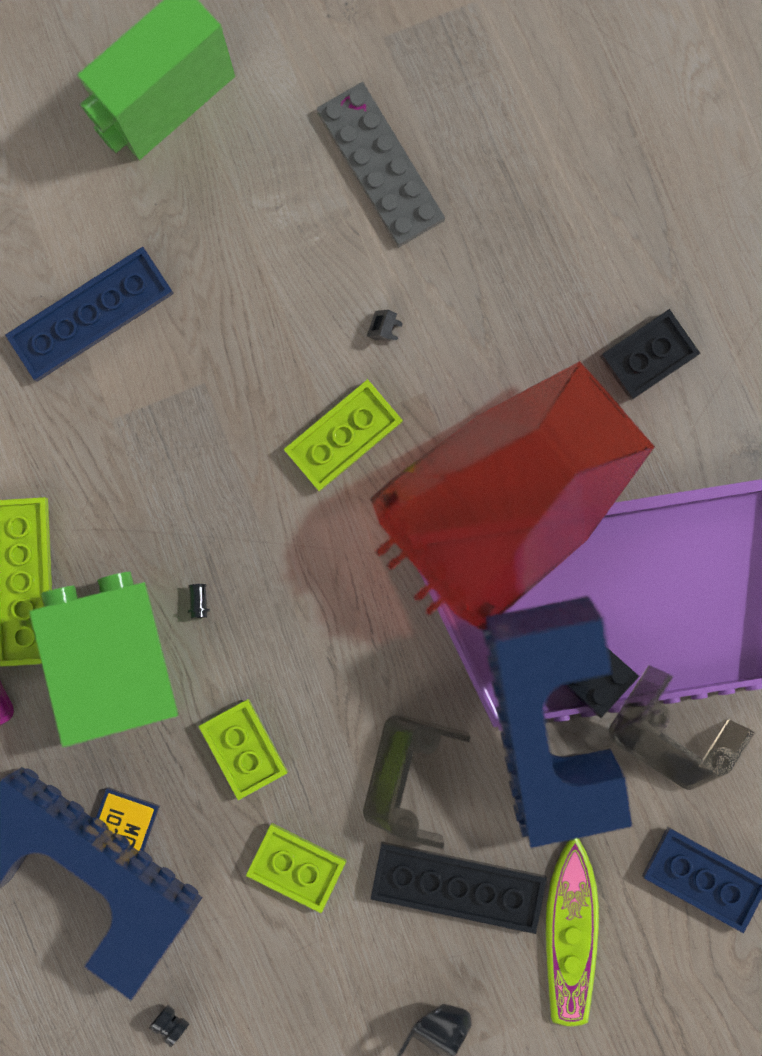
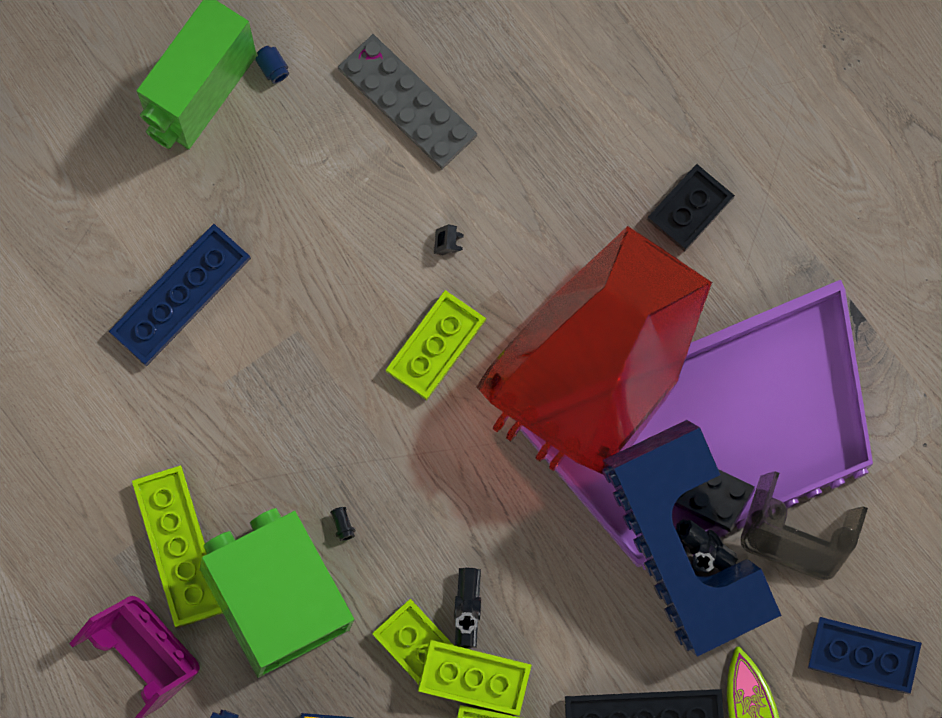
camera: 15 degrees left, 10 degrees down
(247, 88) = (272, 64): none -> dark blue brick
(291, 801) = (474, 677): none -> lime plate
(304, 724) = (467, 607): none -> black piece
(398, 742) = (557, 661): clear smoke windscreen -> none
(570, 732) = (705, 547): none -> black piece

